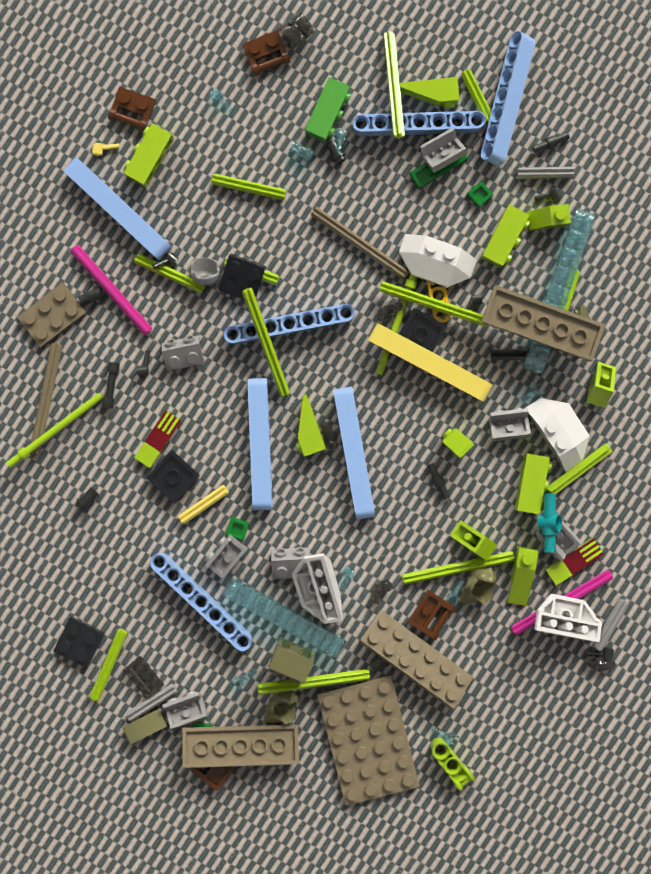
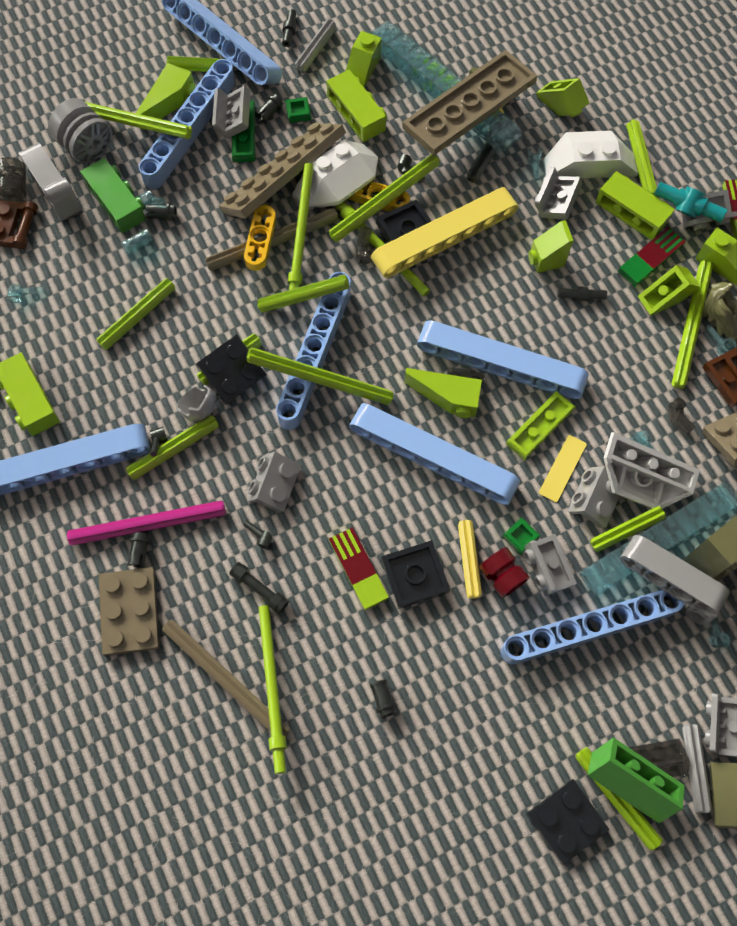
camera: 60 degrees left, 20 degrees down
(118, 670) = (636, 780): none -> bright green brick
(204, 530) = (504, 572): none -> dark red wheel
(255, 636) = (678, 578): none -> light grey beam
(277, 593) = (627, 529): none -> lime axle
(300, 531) = (562, 468): none -> light yellow sticker
(304, 73) = (50, 182): none -> light grey beam
(322, 293) = (303, 293): none -> lime axle
(322, 502) = (540, 425): none -> lime tile
(335, 236) = (264, 246): none -> yellow beam
(337, 278) = (295, 276): none -> lime bar
(361, 53) = (79, 130): none -> light grey wheel
(415, 217) = (281, 170): none -> dark tan plate
(468, 173) = (269, 108): none -> pearl dark grey pin
(498, 515) = (651, 256): none -> tile
(554, 194) = (343, 47): pearl dark grey hand -> none

